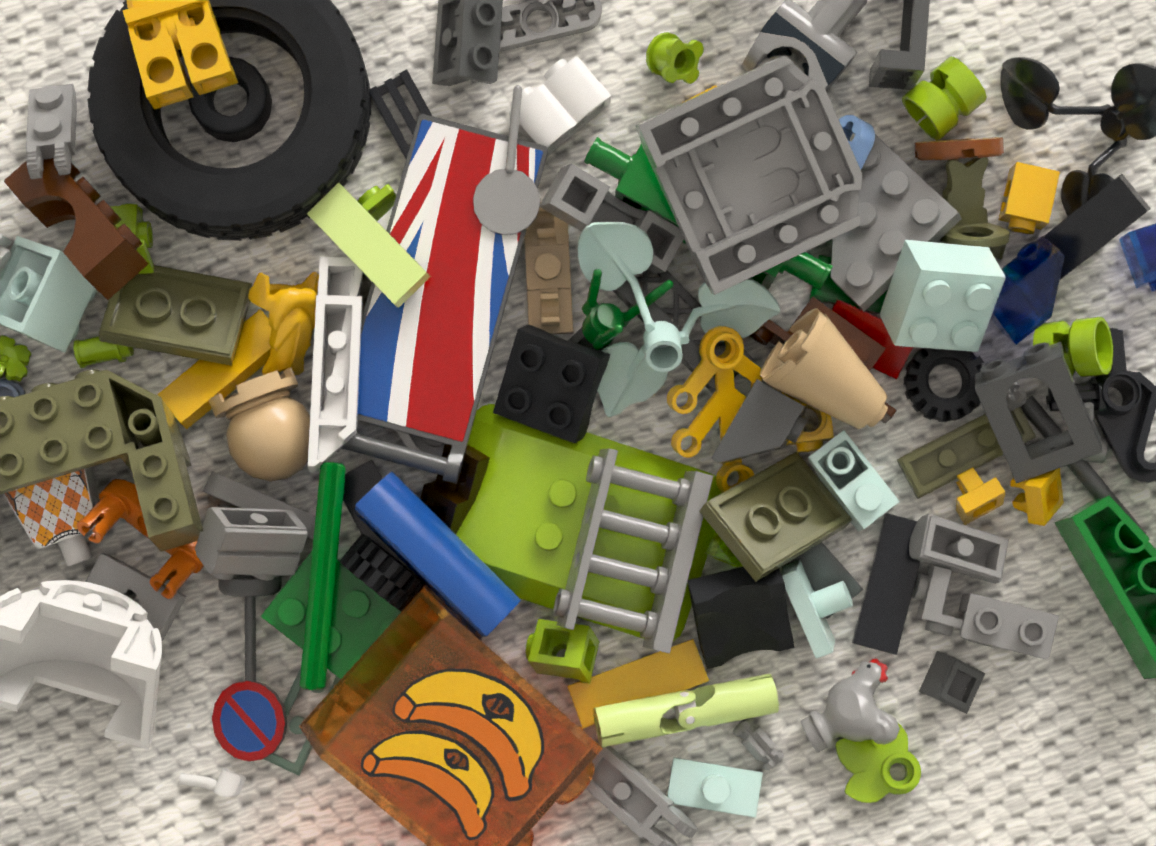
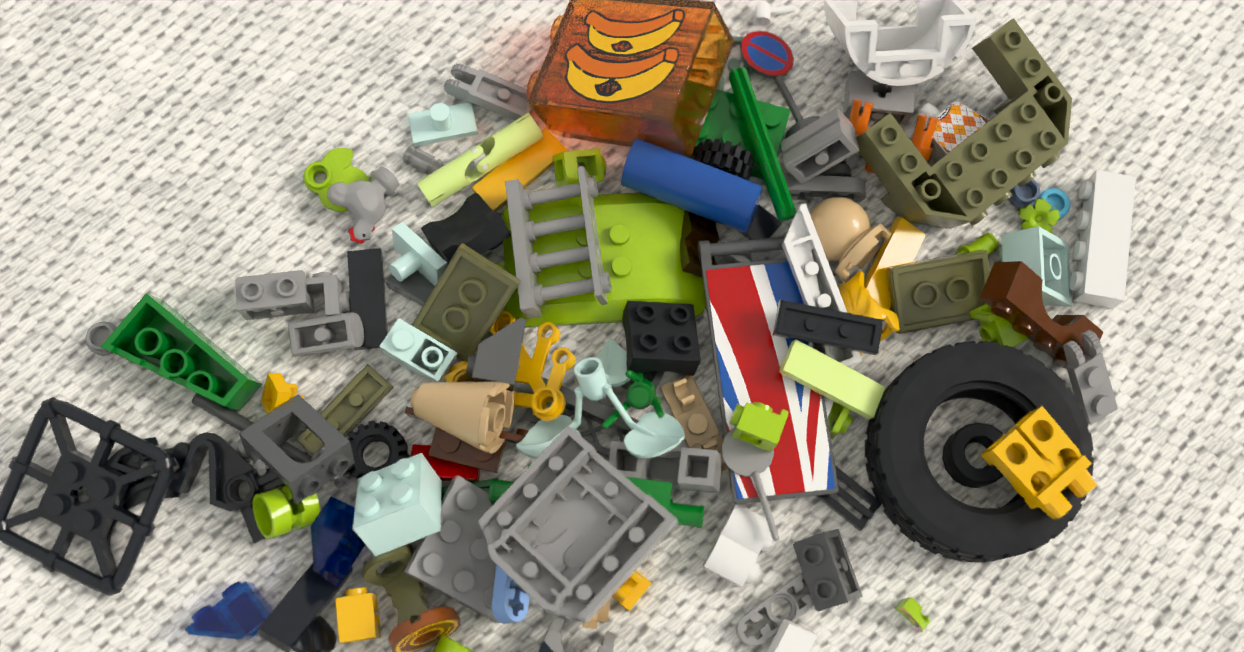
camera: 155 degrees right, 10 degrees down
(348, 303) = (828, 327): none -> black tile
(484, 218) = (758, 425): none -> lime brick
(673, 58) = (668, 617): lime brick -> none
(949, 679) = (302, 249): dark grey slope -> none
(977, 497) = (324, 378): yellow tile -> none

